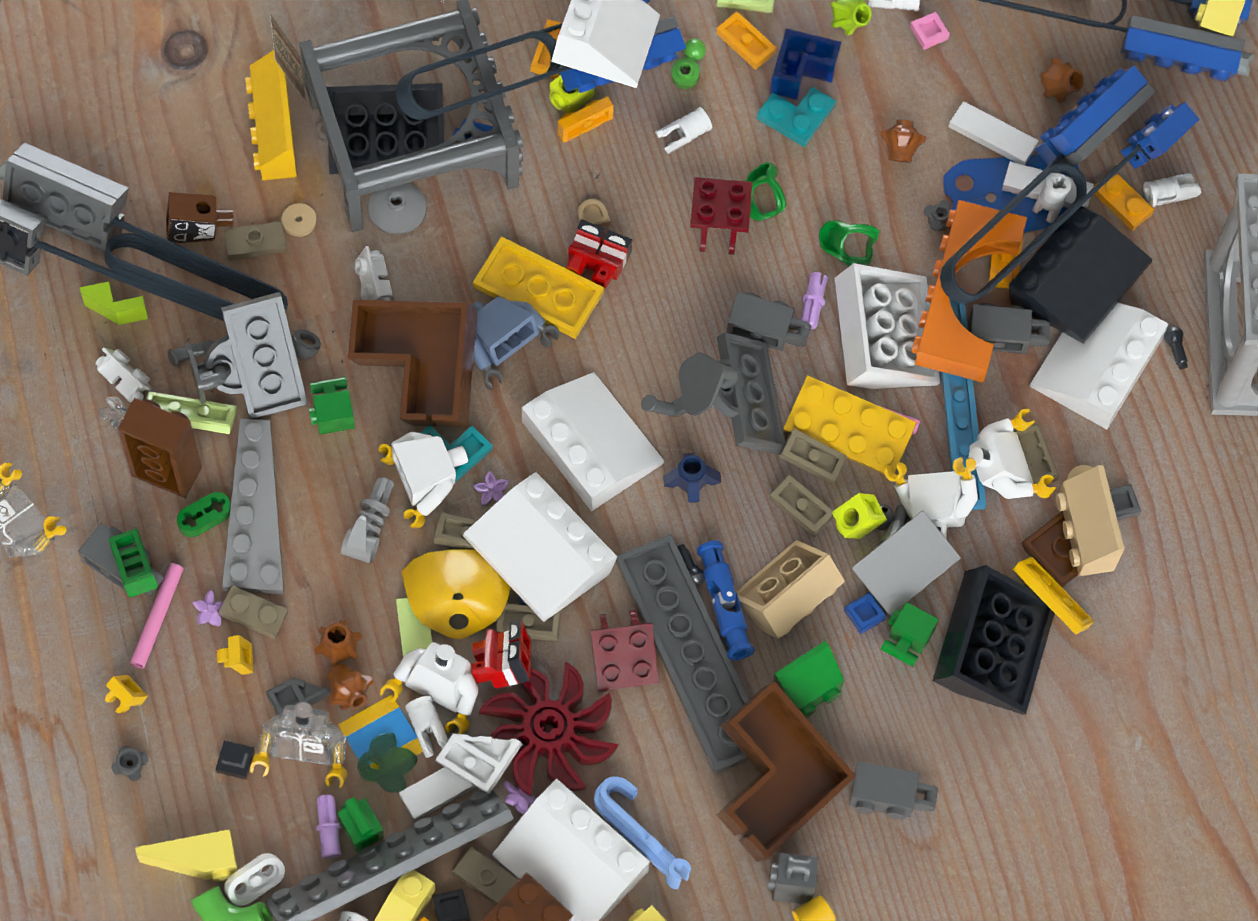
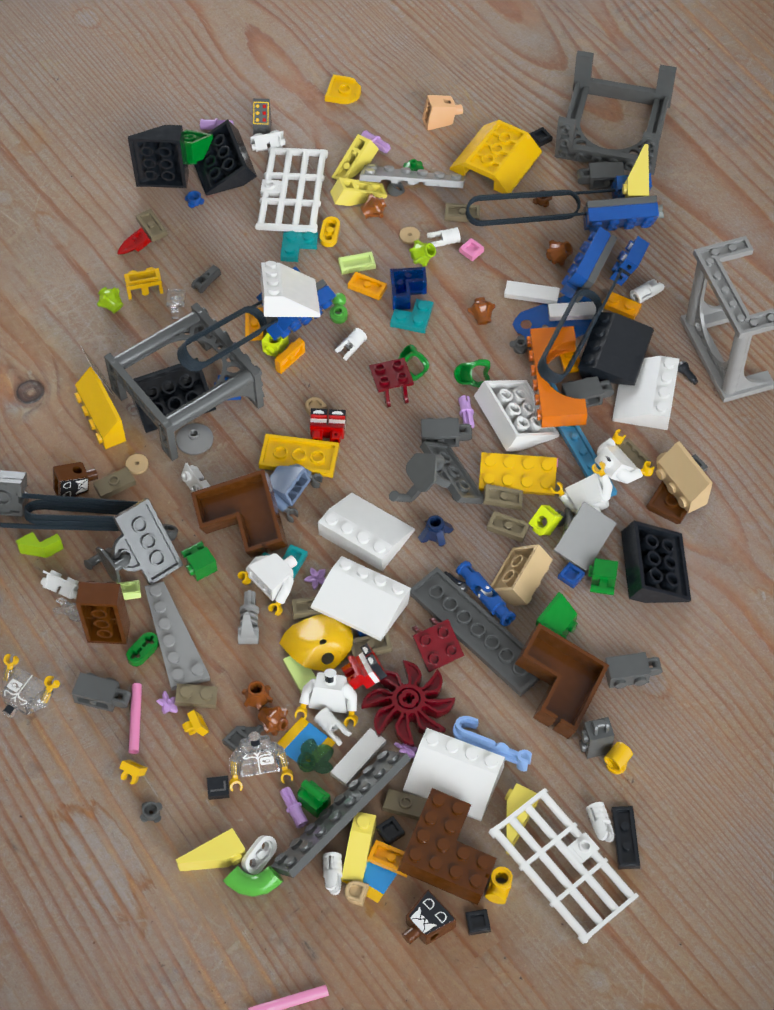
camera: 15 degrees left, 10 degrees down
(138, 580) = (116, 698): green slope -> none
(478, 759) = (372, 734): white wing -> none
(1053, 195) = (582, 311): white hinge -> none
(1053, 595) = (678, 528): yellow tile -> none

